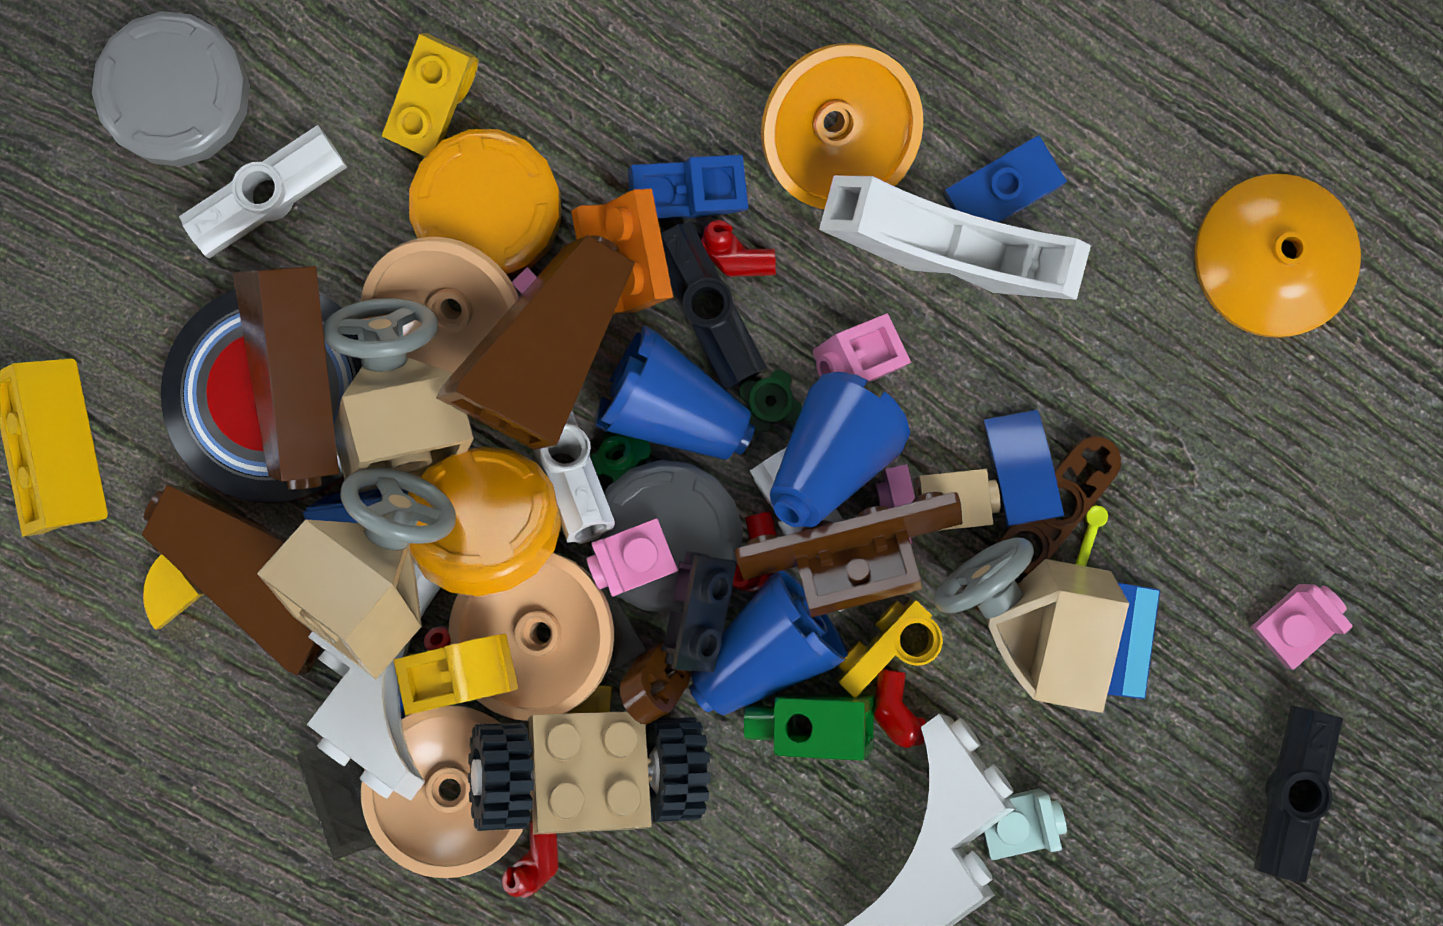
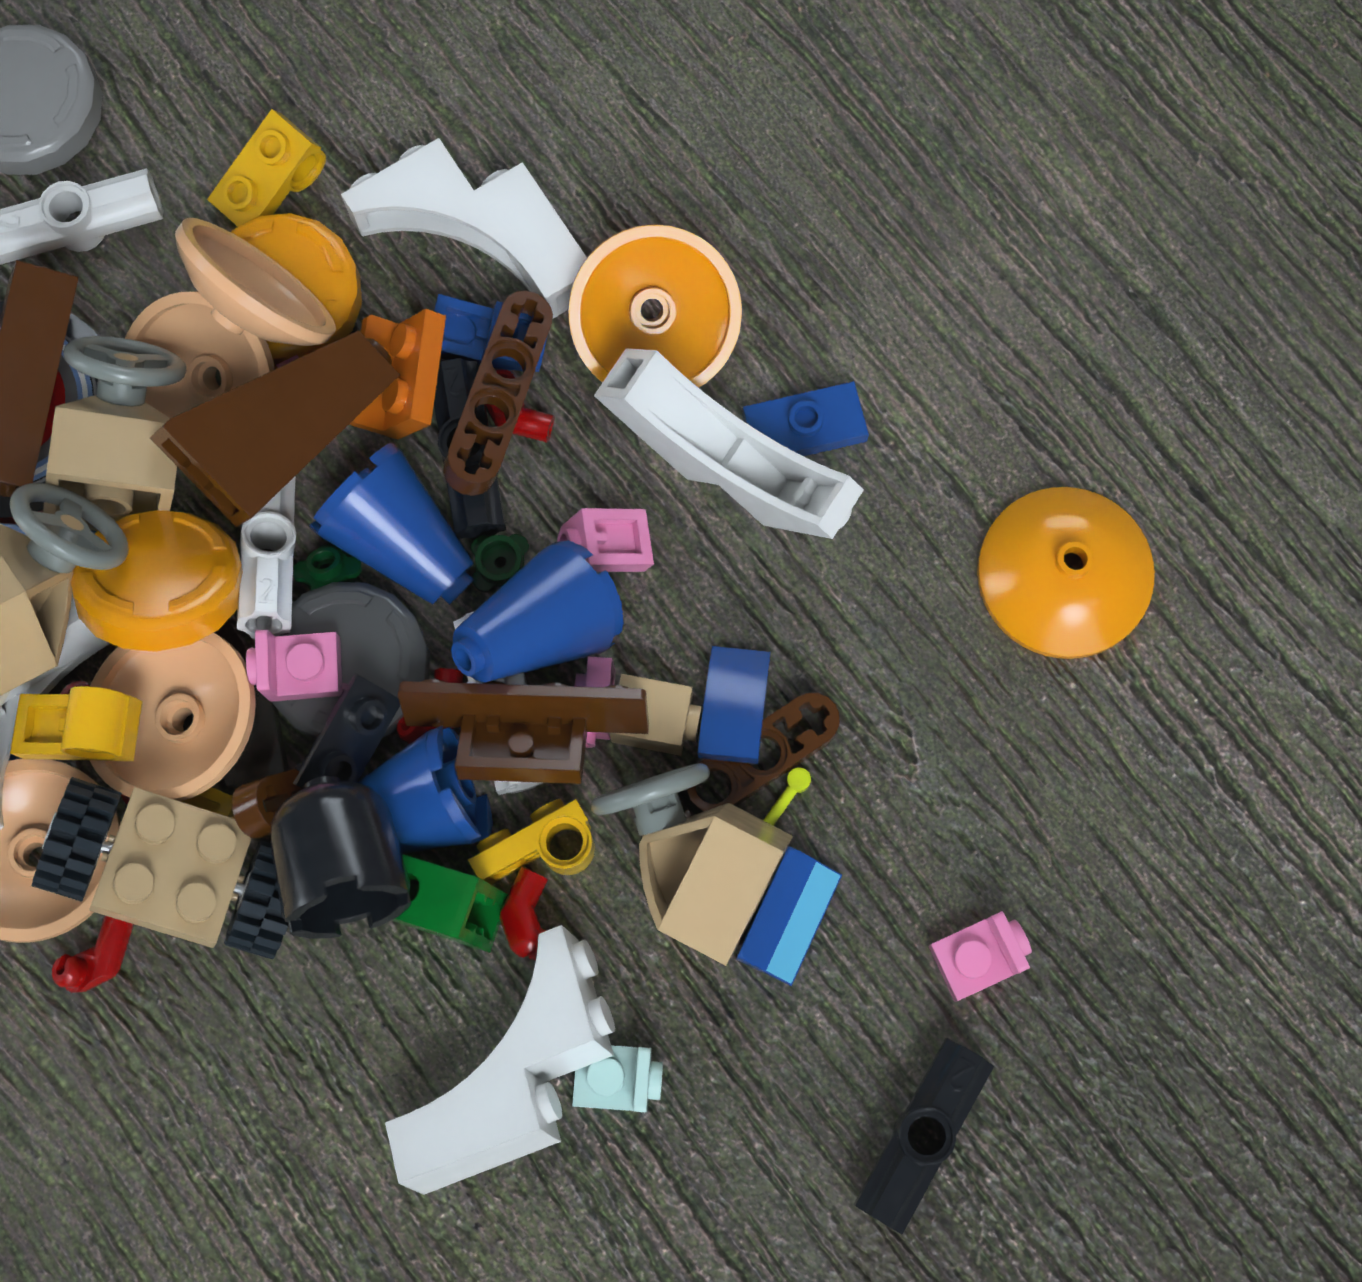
camera: 20 degrees right, 10 degrees down
(478, 225) = (250, 287): none -> light nougat dish
(670, 74) = (501, 218): none -> white arch
(729, 248) = (498, 391): none -> reddish brown beam
(737, 722) = (337, 859): none -> black cylinder

